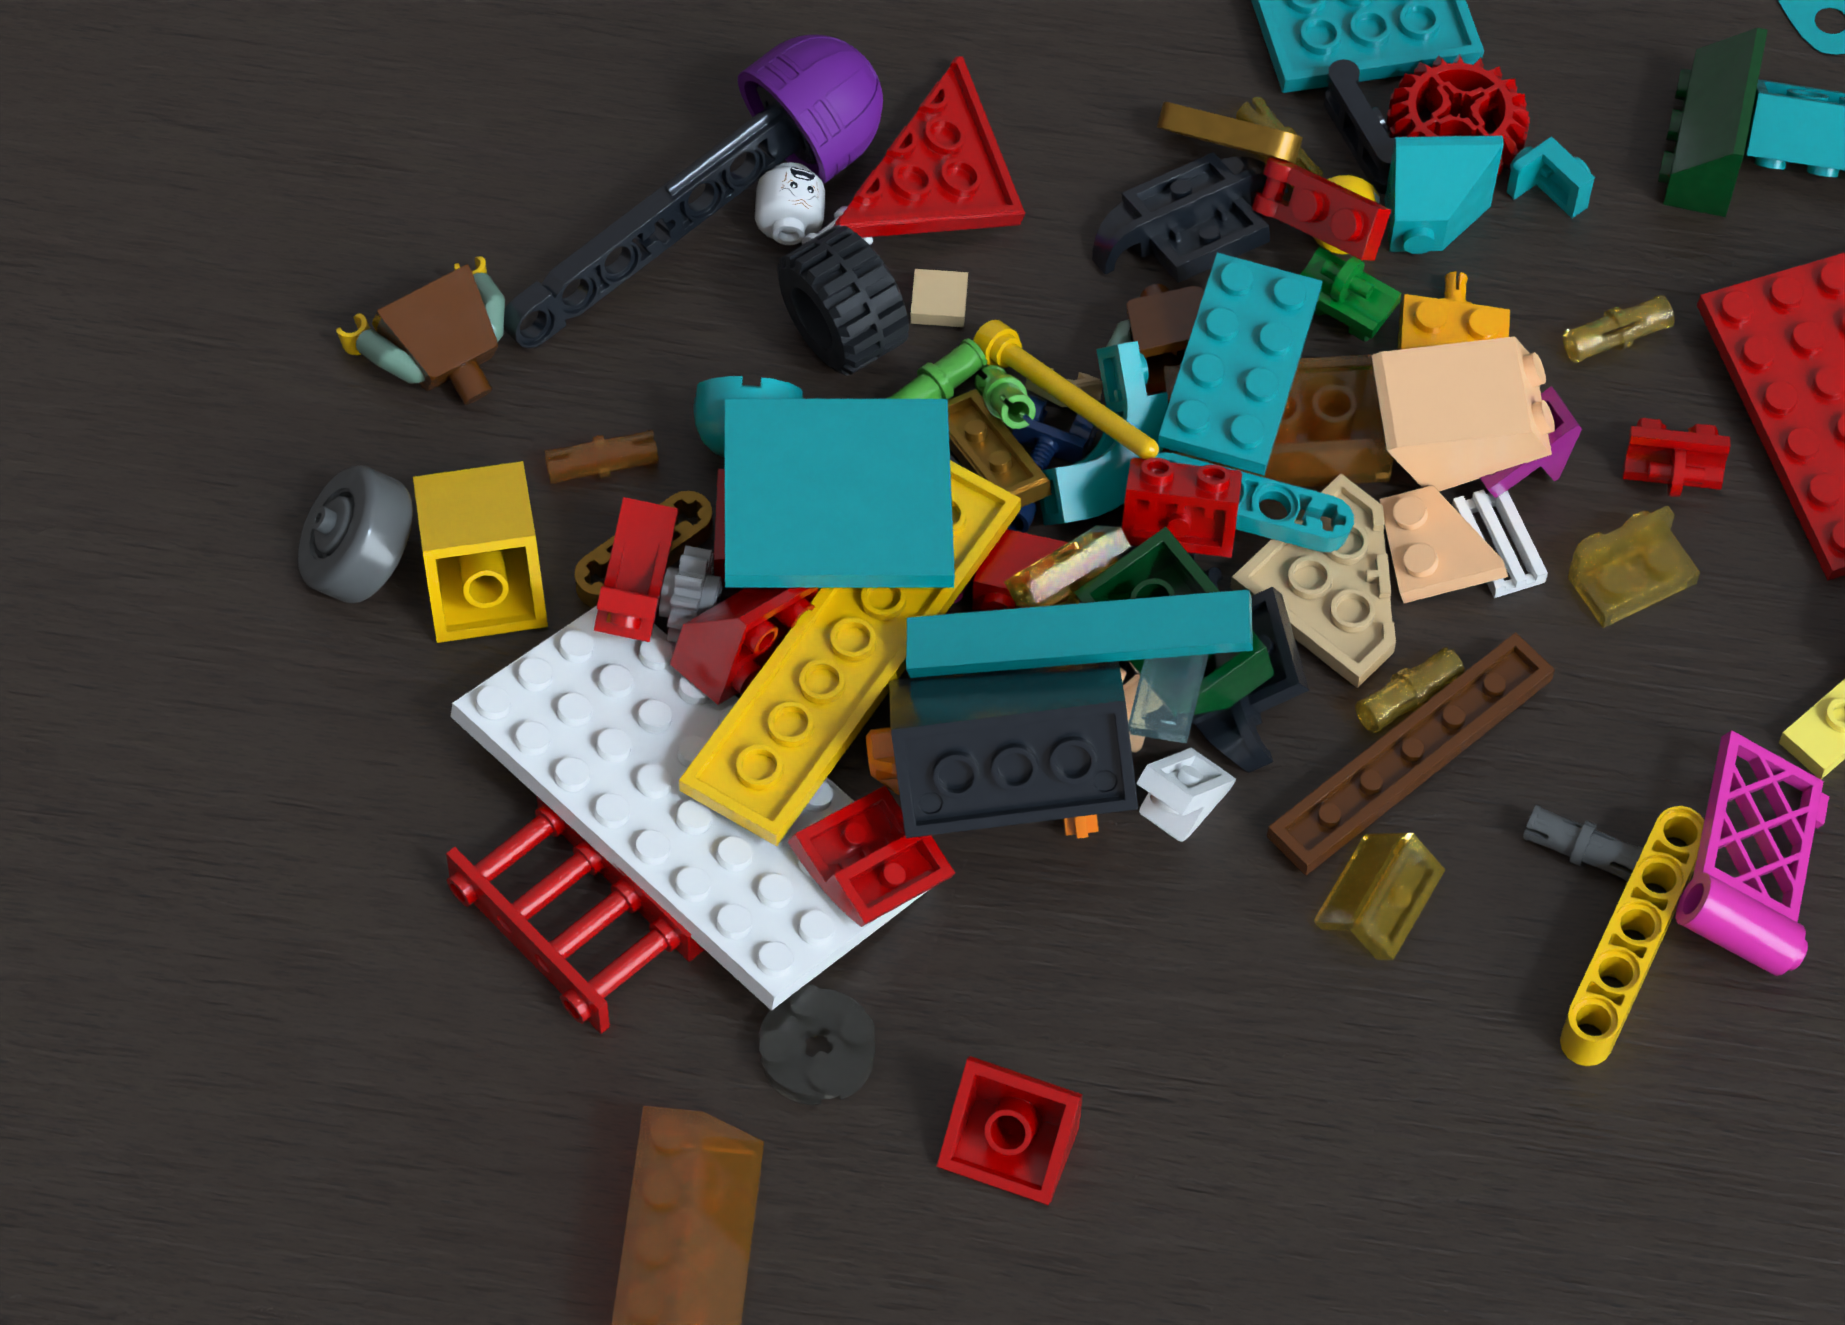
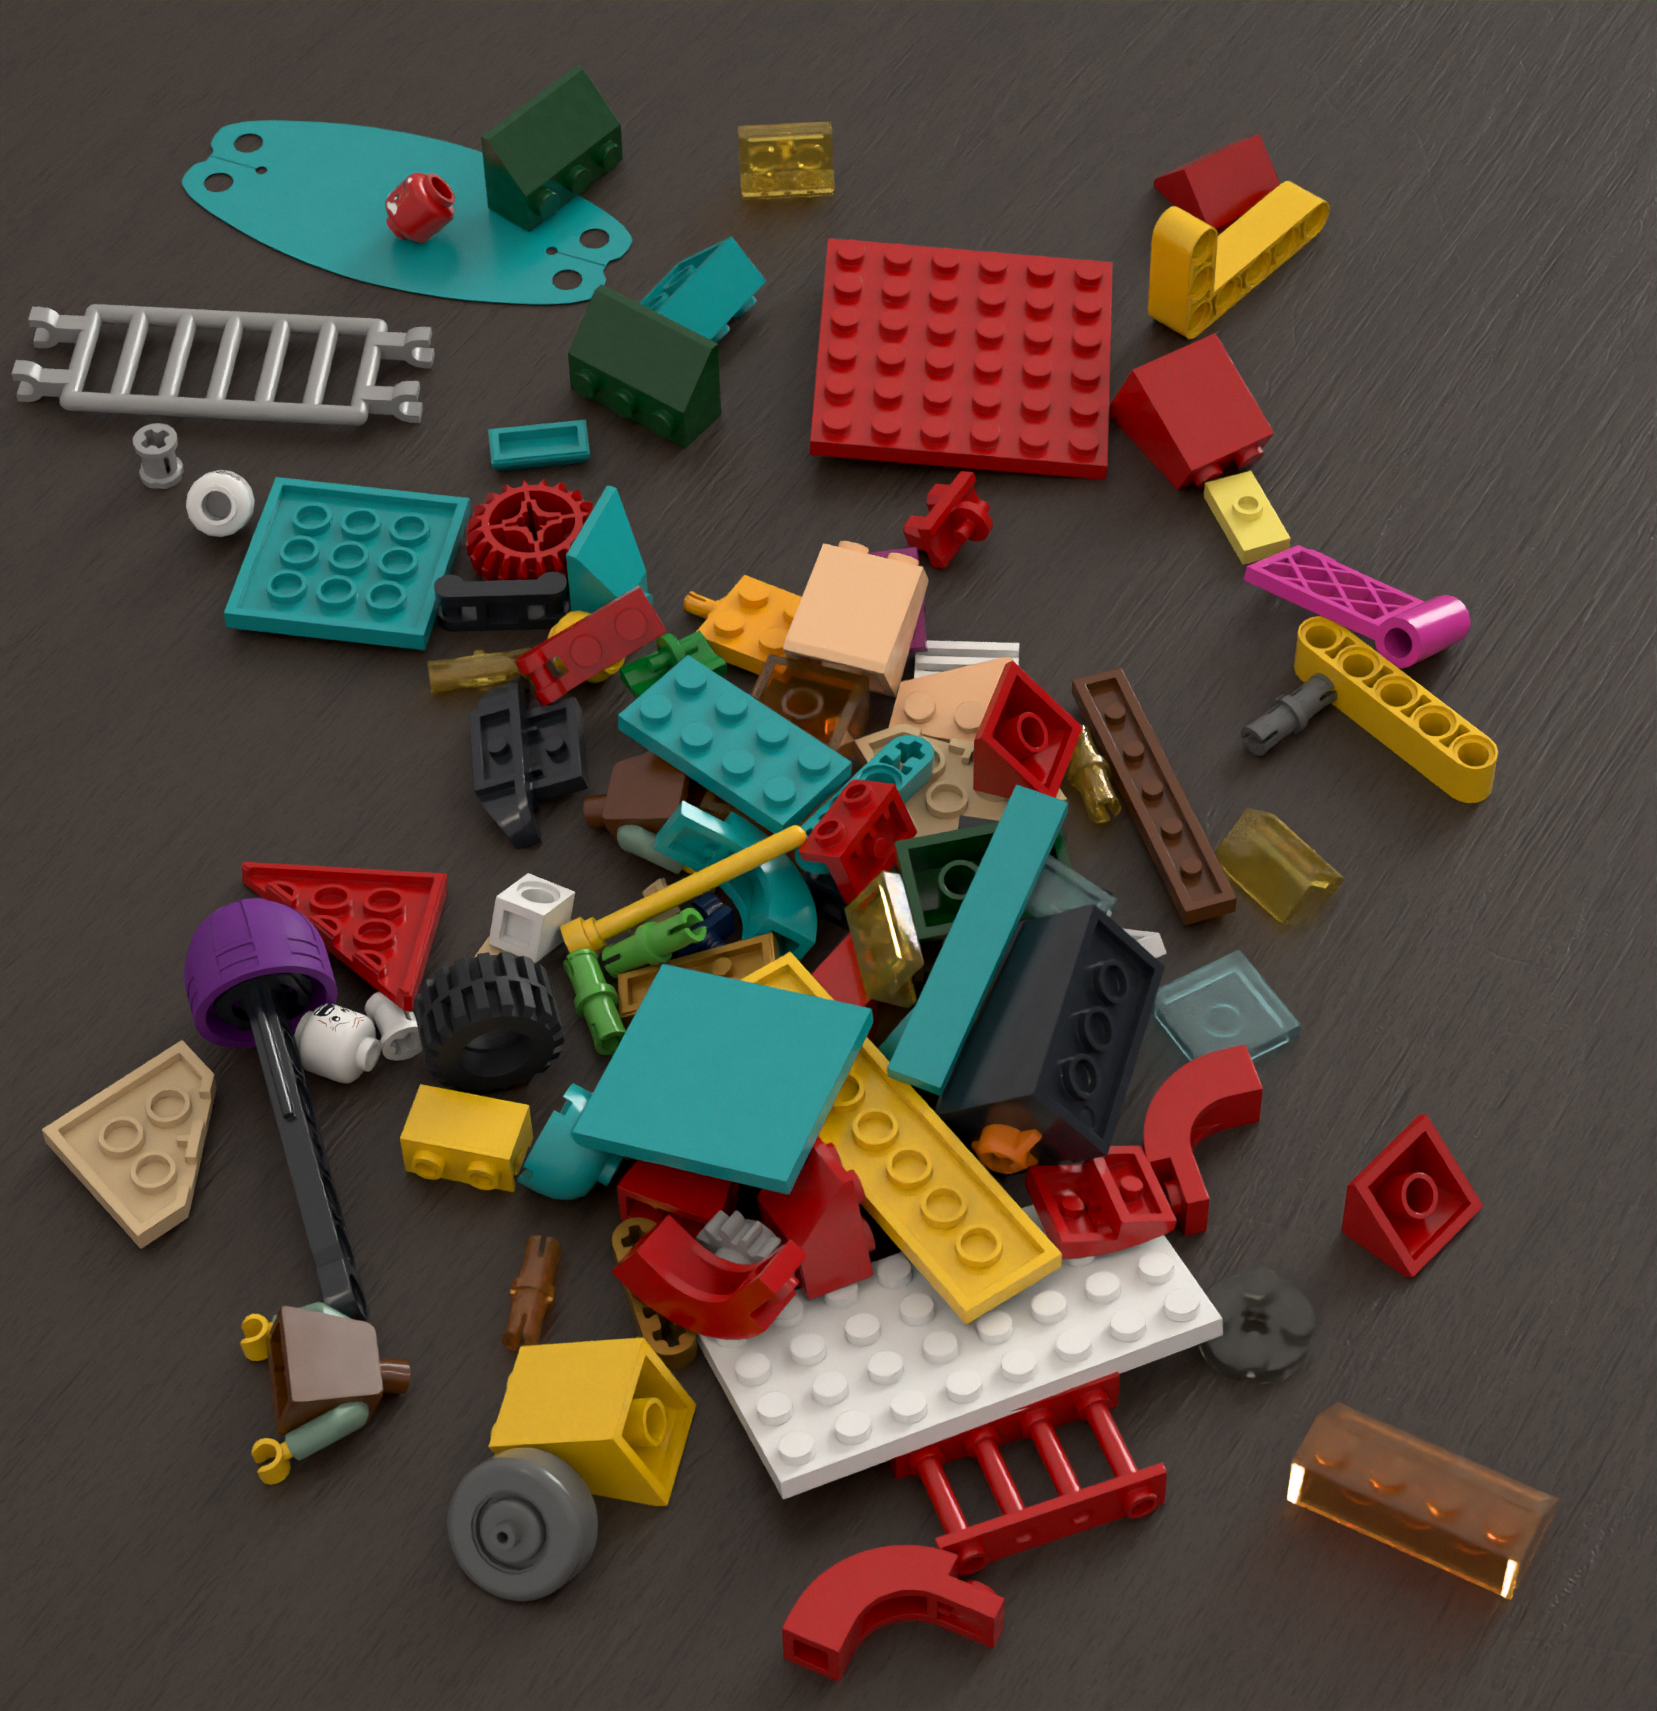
camera: 65 degrees left, 10 degrees down
(384, 811) = (883, 1589): none -> red arch
(629, 109) = (142, 1142): none -> tan plate
(732, 332) = (466, 1138): none -> yellow hinge
(995, 289) = (530, 917): none -> white brick
(1015, 902) = (1193, 1103): none -> red arch
(1171, 905) = (1224, 1008): none -> clear light blue tile
(1229, 132) = (458, 690): pearl gold beam -> none
(1393, 606) = (1022, 738): none -> red slope
(1555, 172) = (638, 487): teal bracket -> none
(1589, 80) = (539, 445): none -> teal tile
(1631, 567) = (1041, 590): clear yellow bracket -> none
(1648, 318) = (800, 514): clear yellow pin -> none

